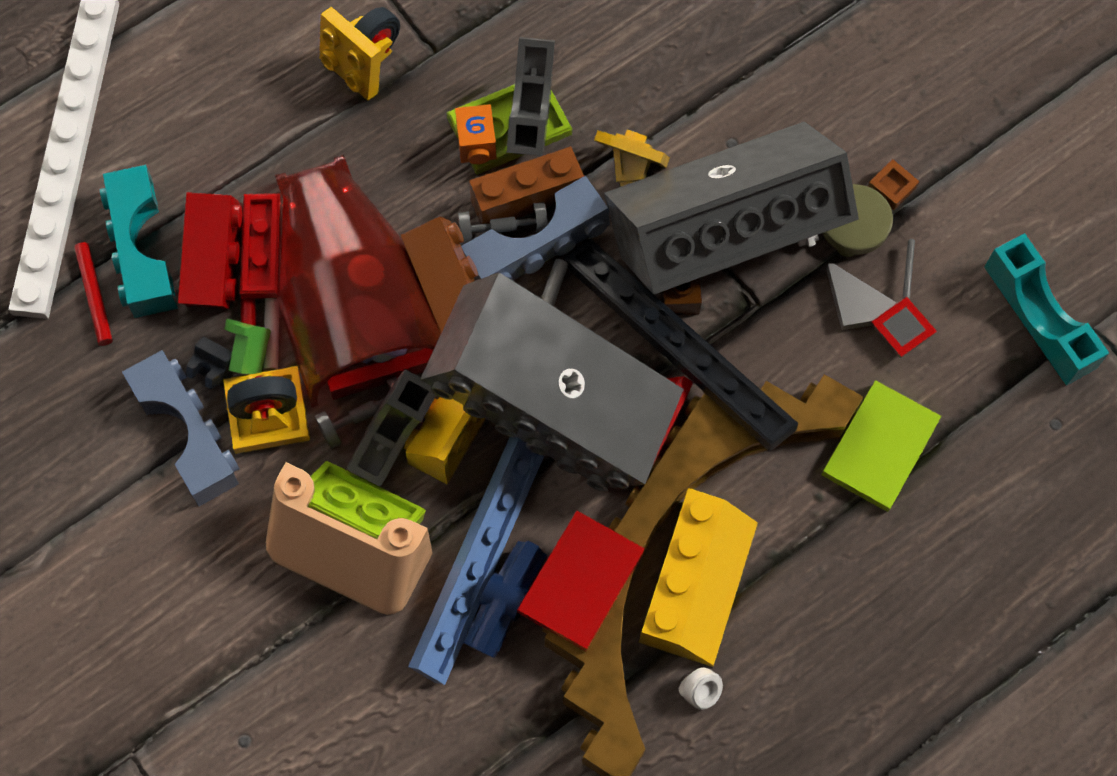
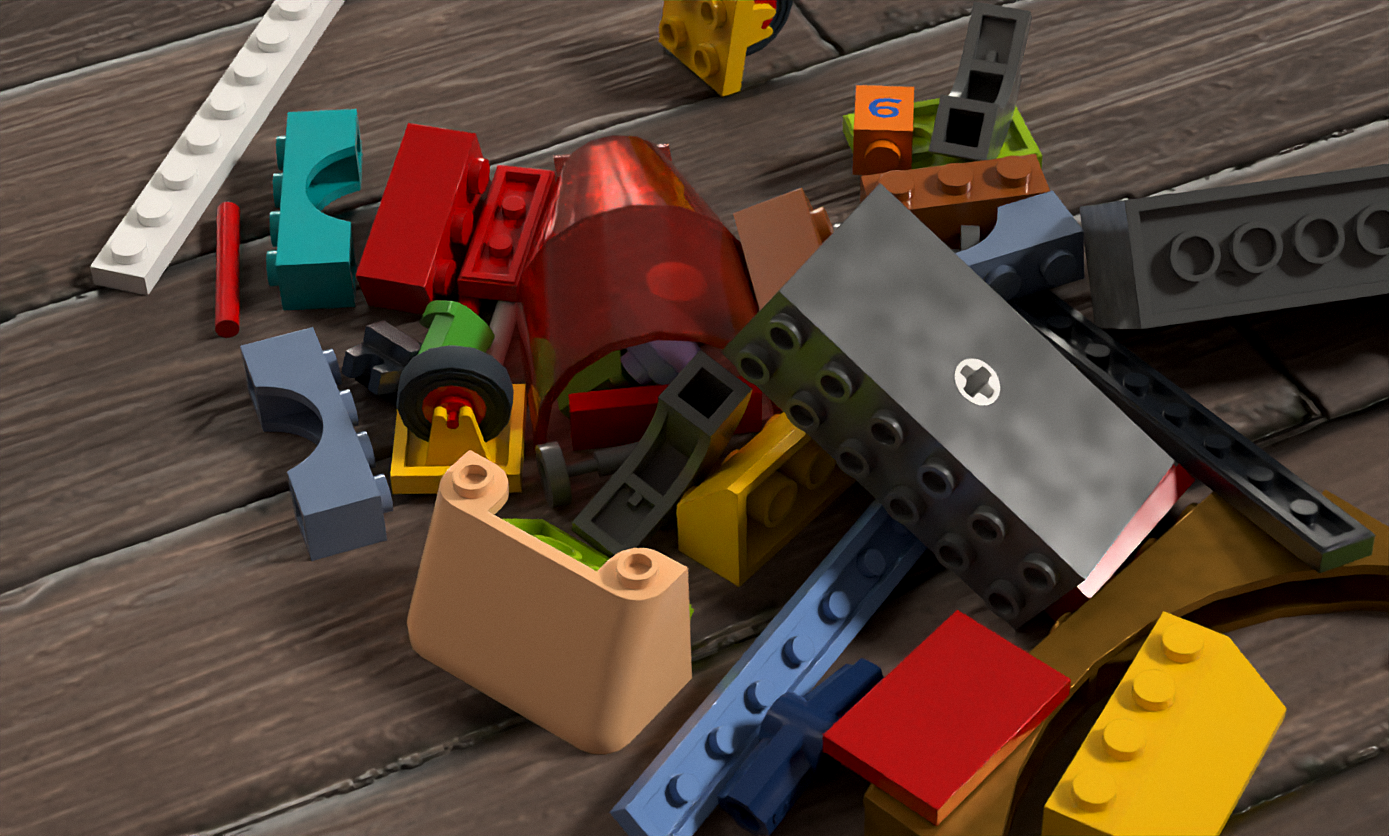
camera: 15 degrees right, 25 degrees down
(631, 155) = (1130, 167): yellow piece -> none
(684, 302) = (1196, 366): reddish brown plate -> none

